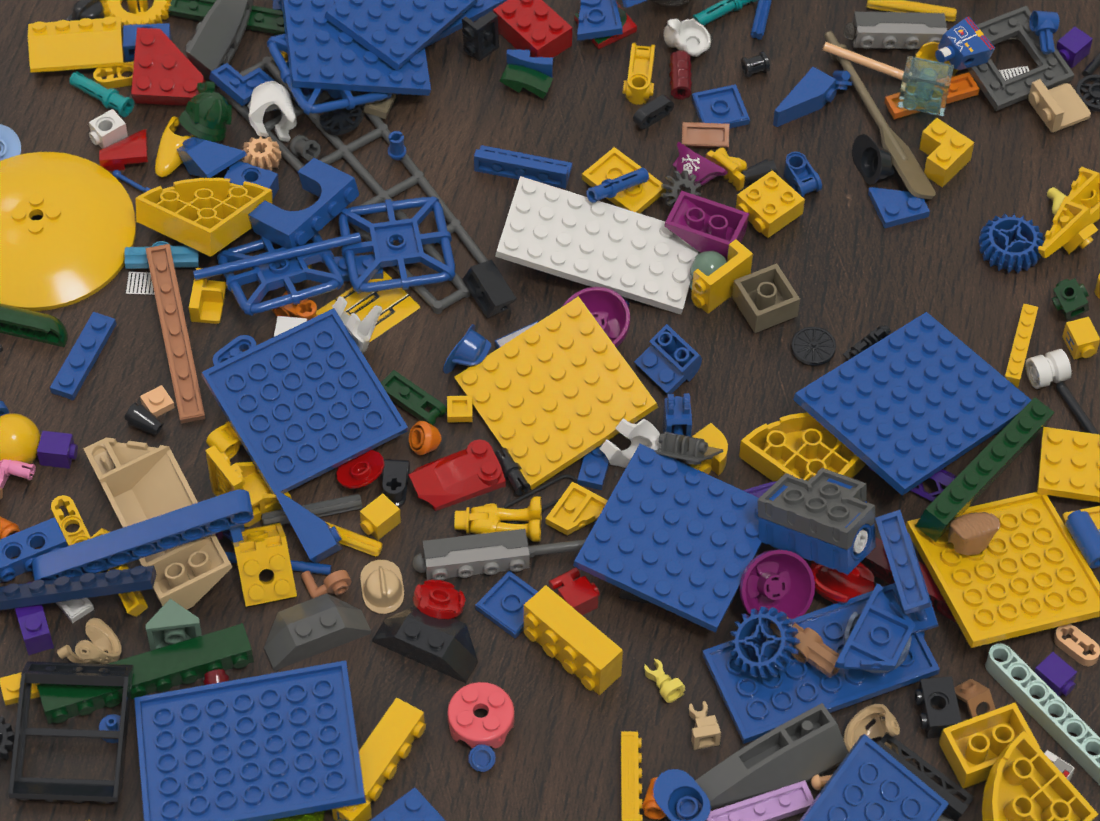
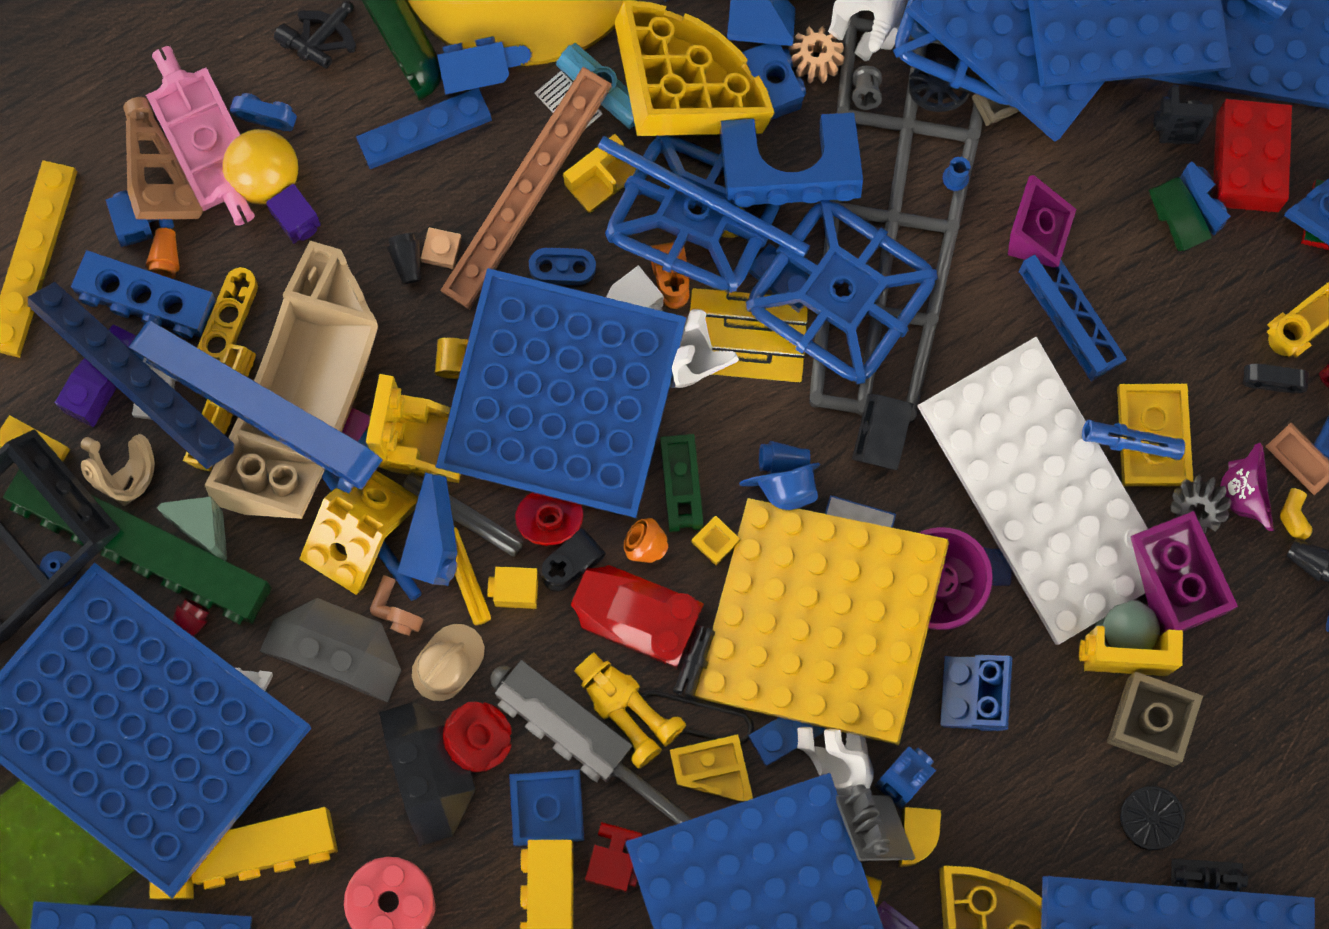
camera: 45 degrees right, 20 degrees up
(83, 299) = (479, 65): none -> blue hinge
(447, 343) = (781, 457): none -> blue cone
(461, 137) = (1041, 224): none -> magenta slope
(732, 169) = (1281, 521): yellow piece -> none
(770, 204) = (1279, 610): yellow brick -> none

